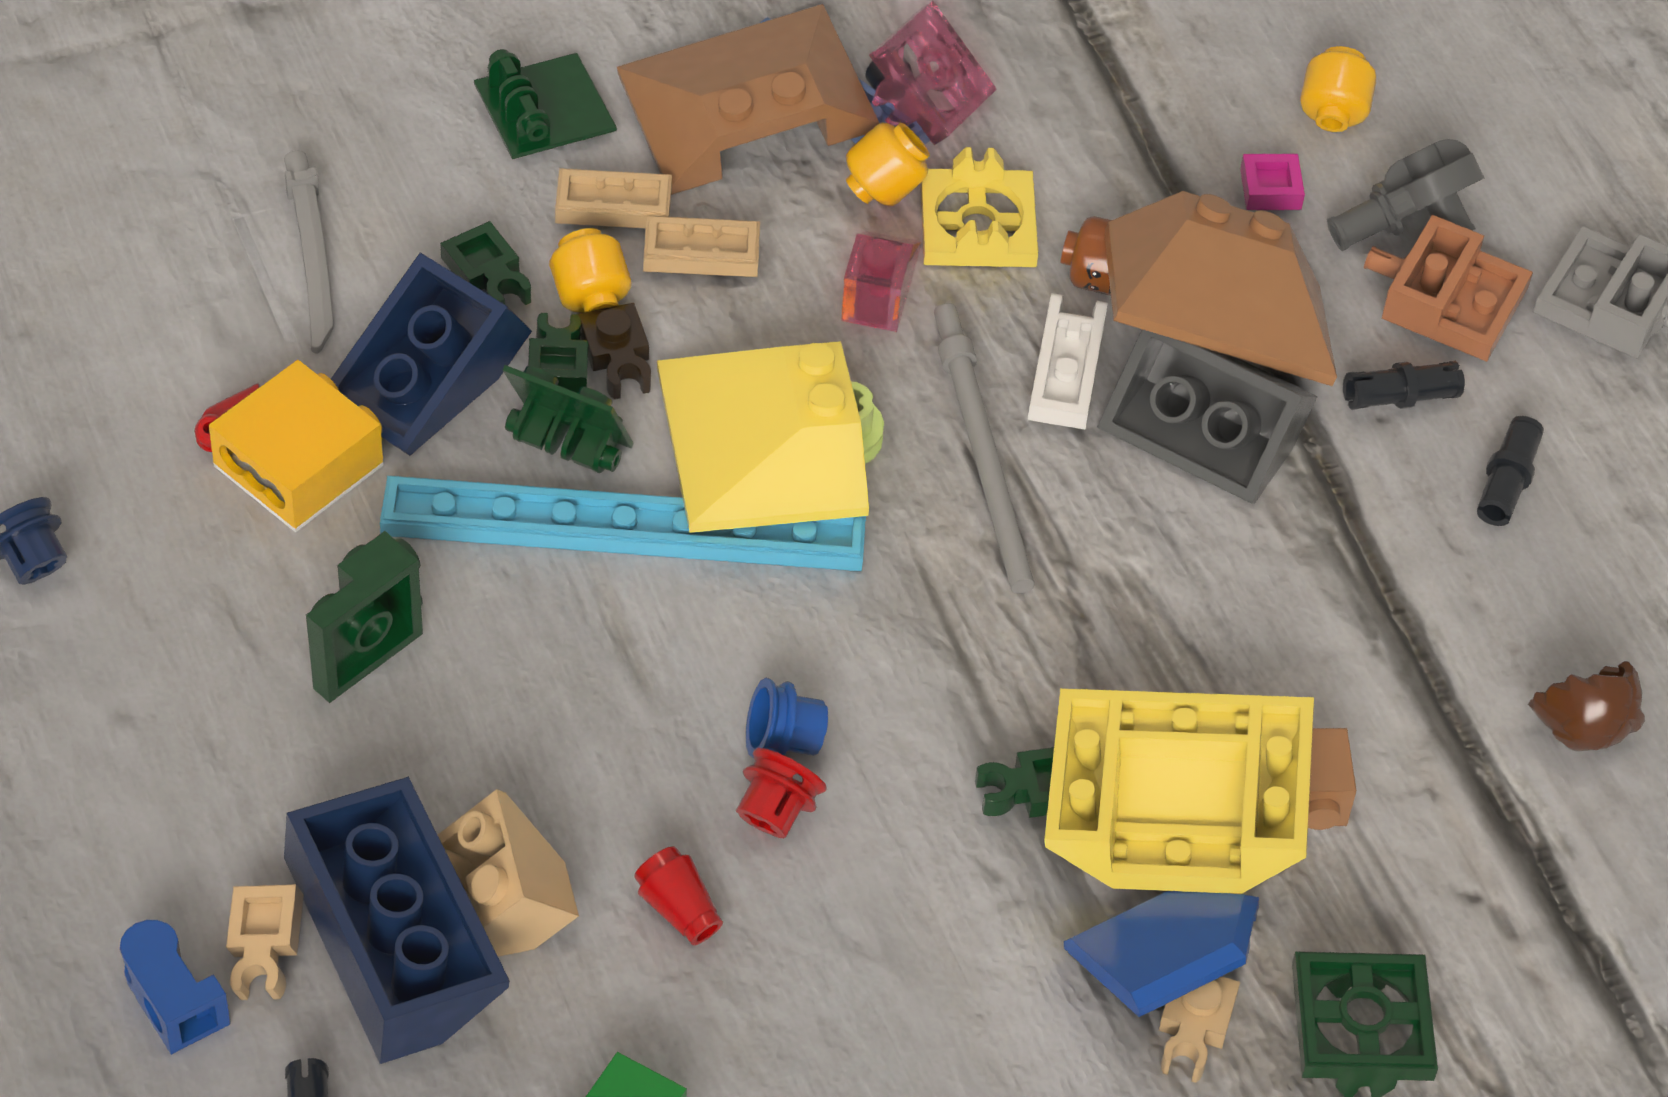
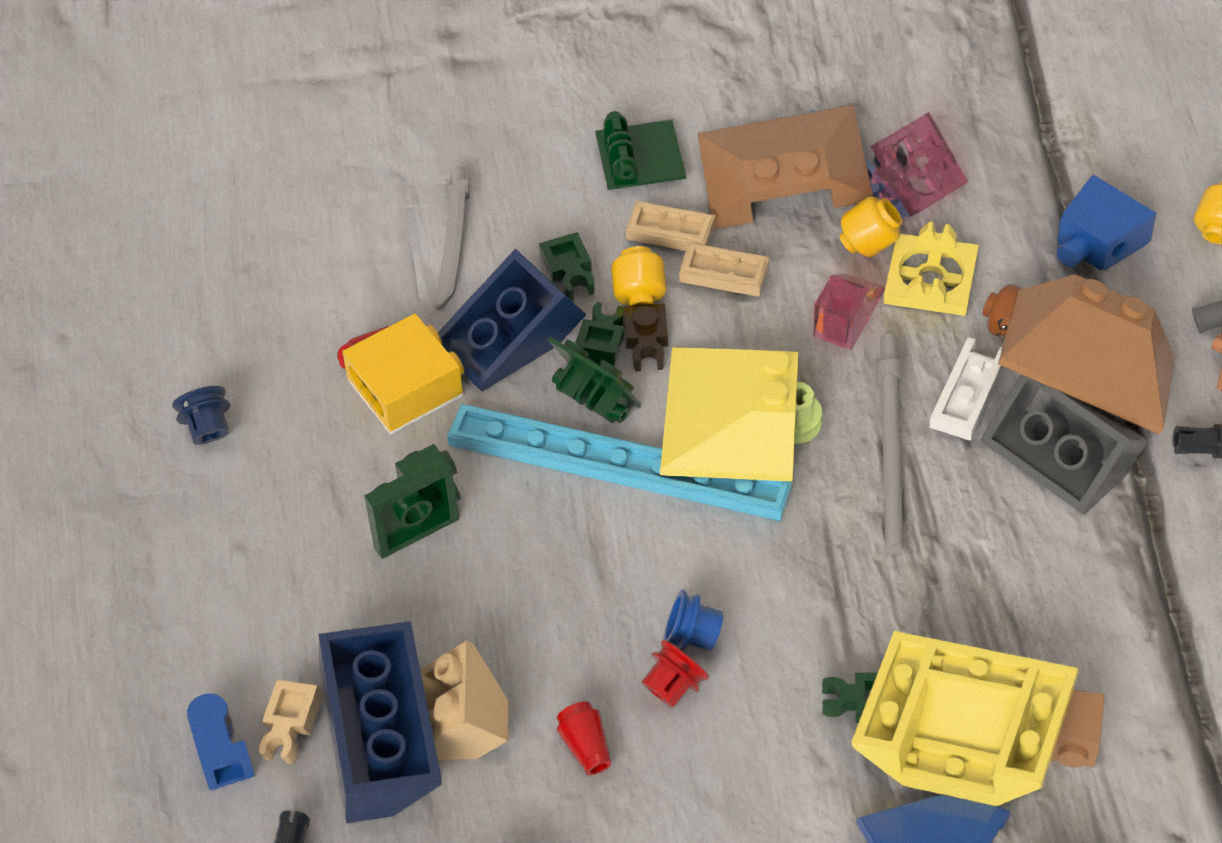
camera: 20 degrees right, 0 degrees up
(1189, 126) = (1103, 226): none -> blue torso
(1272, 182) = (1156, 275): dark pink plate -> none

